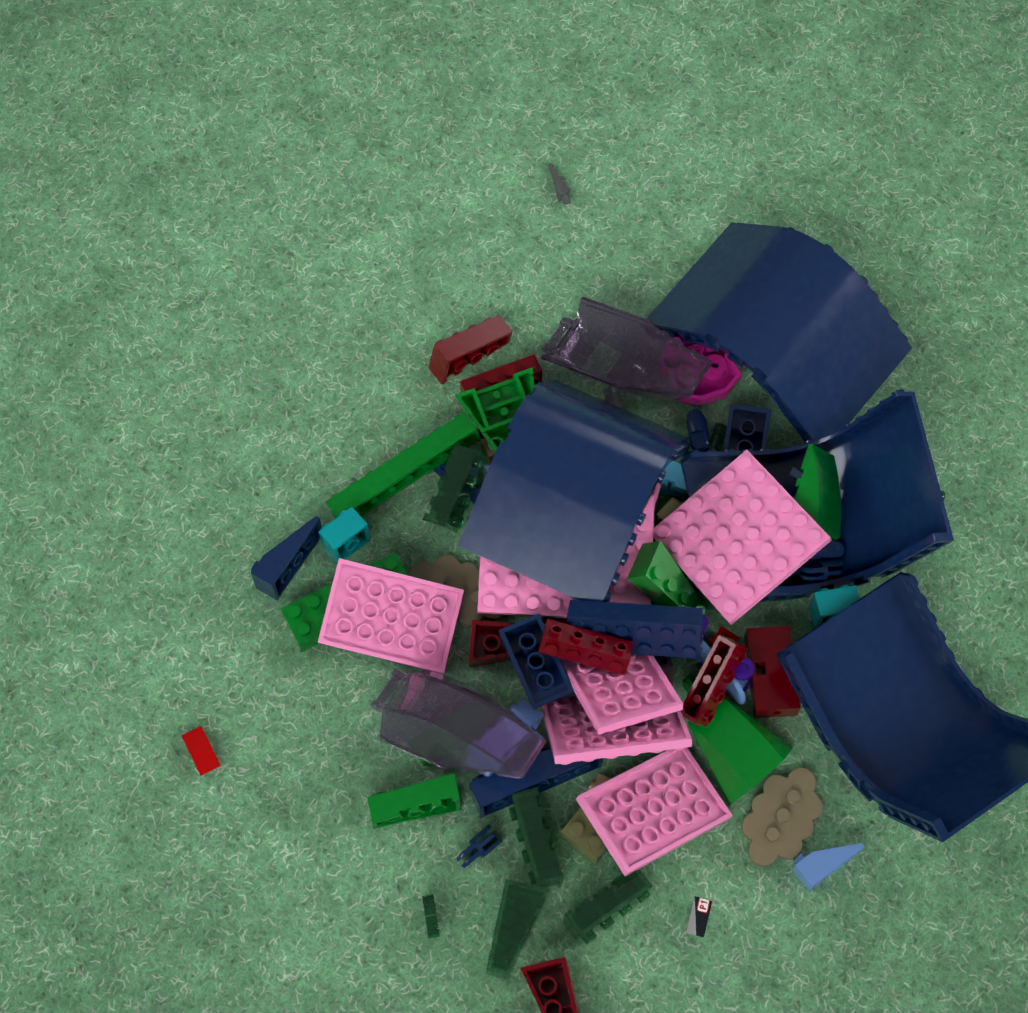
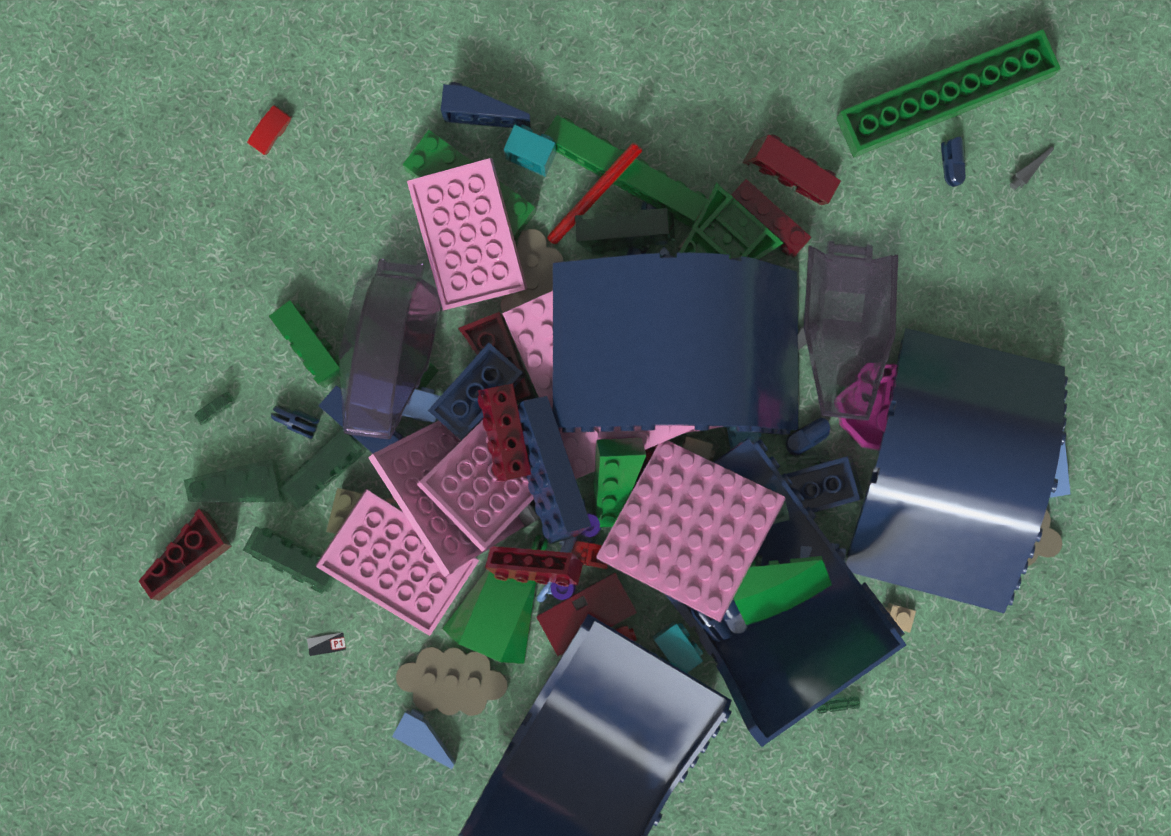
camera: 65 degrees right, 20 degrees up
(410, 499) = (595, 192): none -> red axle
(469, 214) = (948, 93): none -> green brick
(525, 232) = (953, 161): none -> dark blue arm

